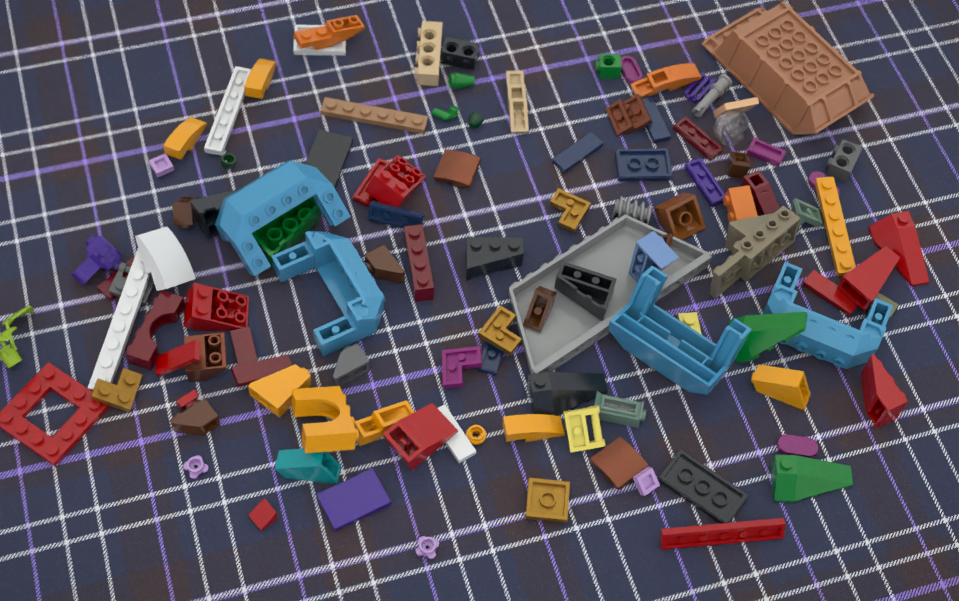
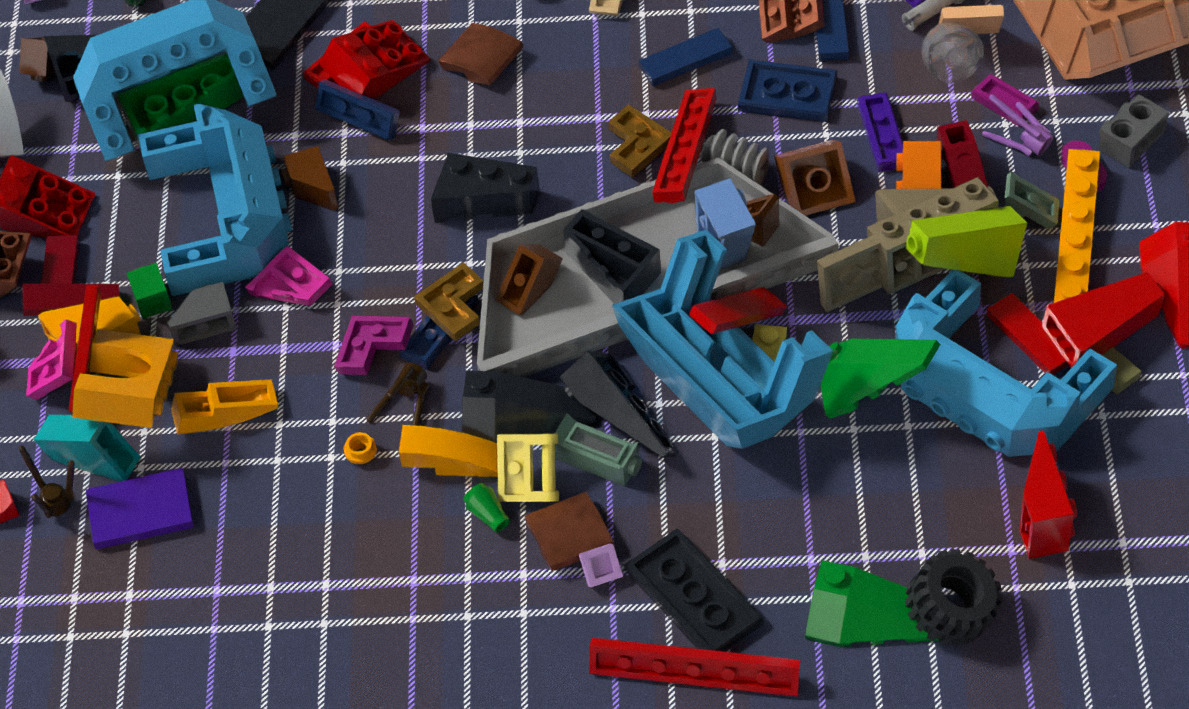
camera: 25 degrees right, 5 degrees down
(270, 416) = (54, 364): none -> dark pink wing
(289, 404) = (86, 335): none -> red tile
(298, 502) = (53, 498): none -> dark brown plant
(309, 355) = (149, 290): none -> green brick
(394, 333) = (289, 280): none -> dark pink wing
(419, 263) = (359, 198): dark red arch -> none
(419, 435) = (267, 430): red slope -> none
(427, 541) = (221, 589): lavender plate -> none
(459, 443) = (324, 441): white tile -> none
(490, 387) = (408, 383): none -> dark brown plant
(547, 500) = (433, 564): pearl gold plate -> none
(565, 457) = (485, 505): none -> green cone
(604, 210) = (684, 146): none -> red plate
(610, 372) = (607, 390): none -> black wedge
(673, 309) = (737, 310): none -> red tile
(698, 138) = (896, 63): dark red tile -> none
(739, 164) = (944, 108): reddish brown slope -> none
(782, 384) = (884, 460): light orange slope -> none
(791, 244) = (970, 241): none -> lime slope
(793, 173) = (1035, 136): none -> medium lavender plant
(797, 446) = (877, 559): magenta tile -> none
(853, 462) = (967, 579): none -> black tyre

